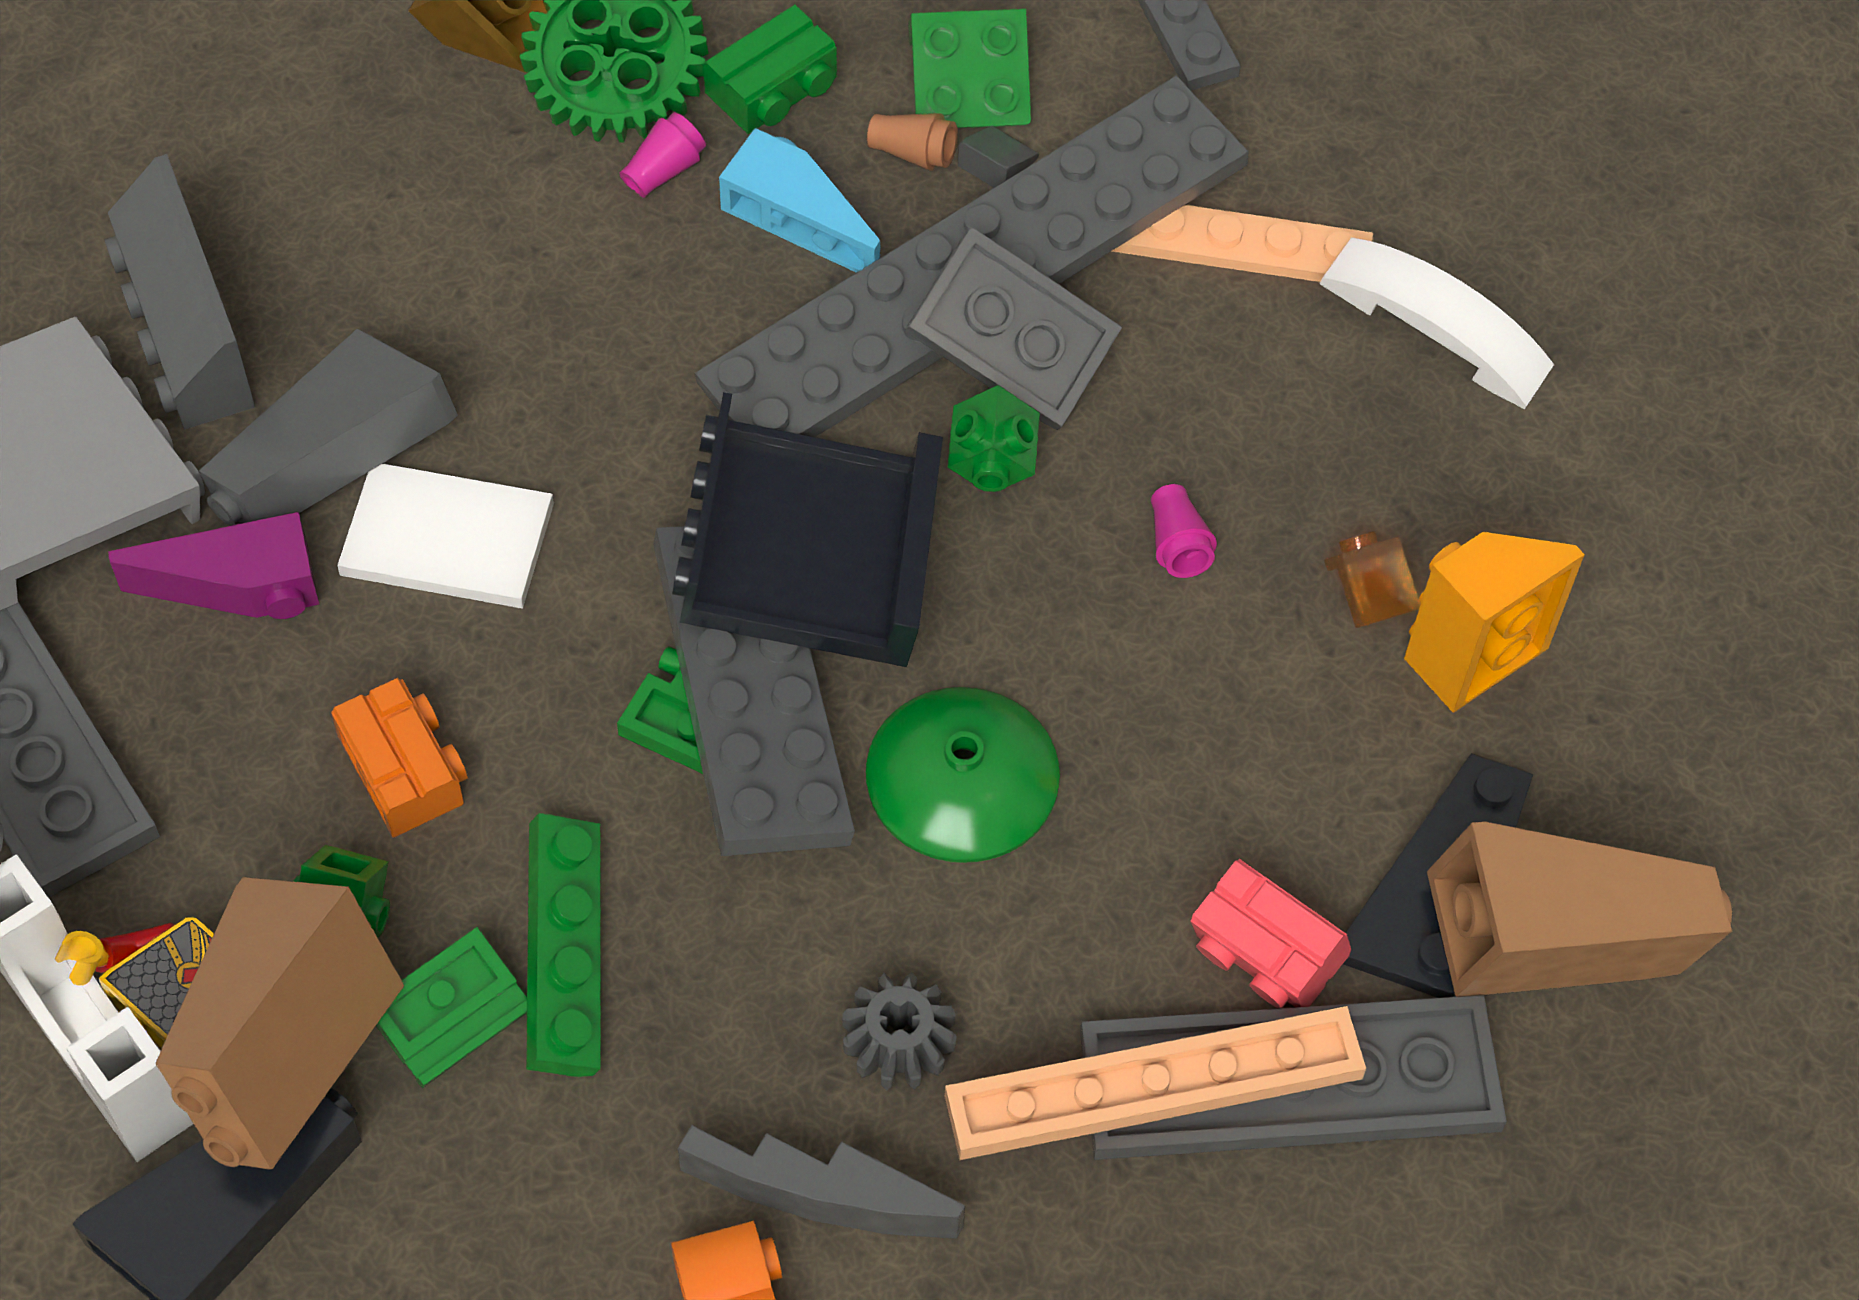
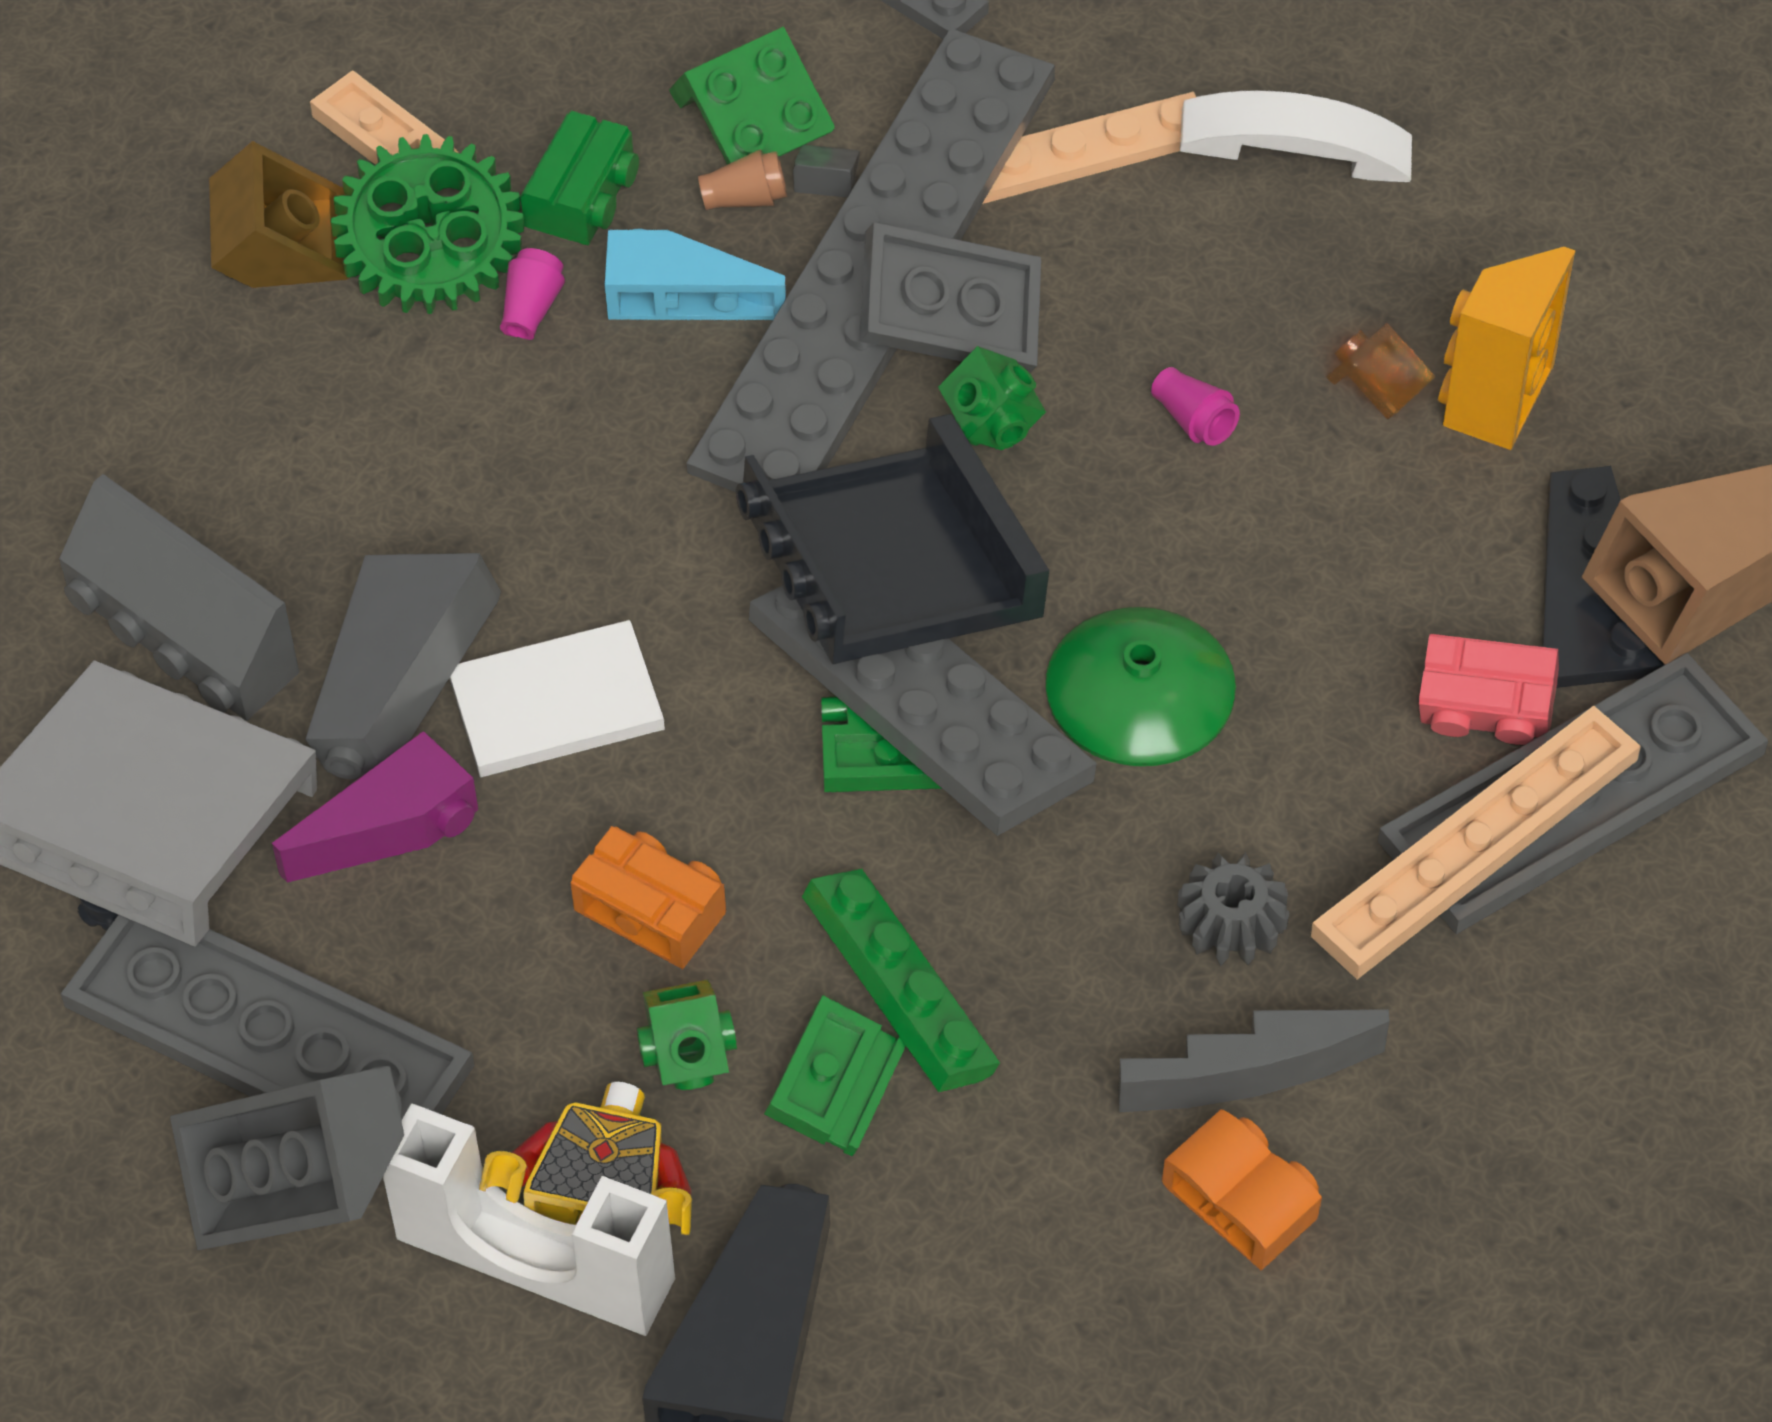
camera: 25 degrees left, 5 degrees down
(274, 1015) = (719, 1127): medium nougat slope -> none

